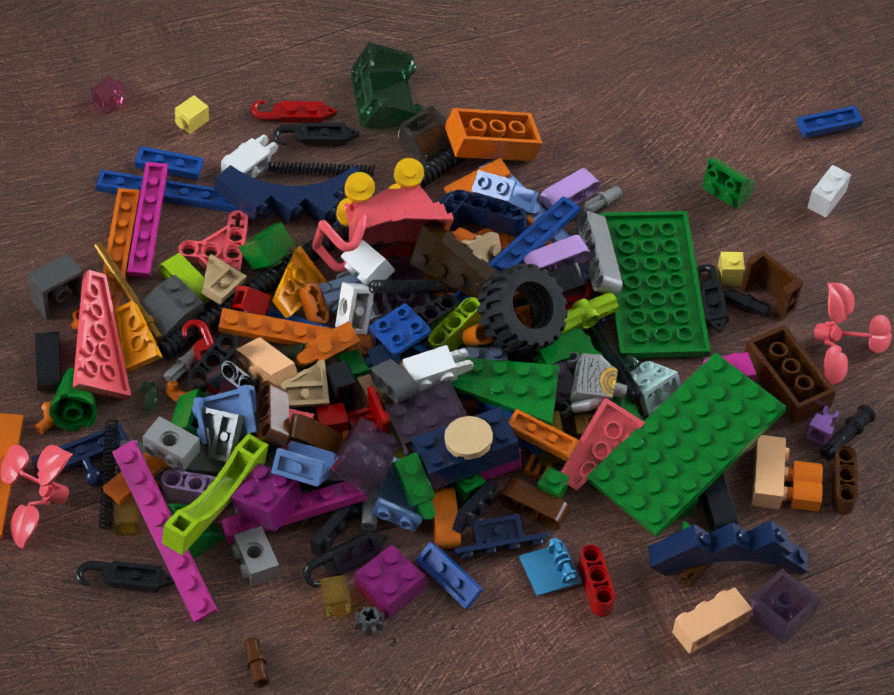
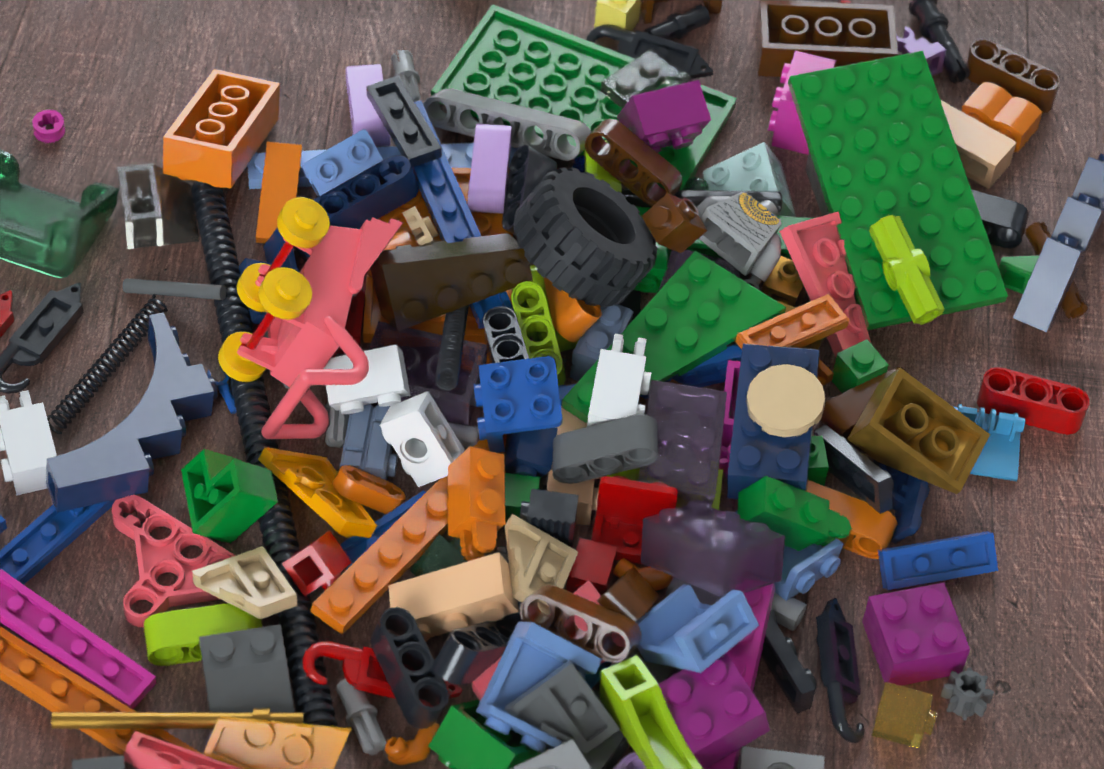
camera: 60 degrees left, 0 degrees up
(381, 168) = (176, 289): none -> dark grey bar
(451, 68) = (48, 117): none -> dark pink bush
(516, 523) = (918, 433): none -> pearl gold slope
(553, 203) = (404, 121): none -> plate
(566, 345) = (674, 223): none -> reddish brown brick
(604, 314) = (616, 160): none -> reddish brown beam
(625, 470) = (906, 269): none -> lime piece
(648, 314) = (667, 115): none -> magenta brick
(681, 299) = (641, 76): none -> clear smoke plate

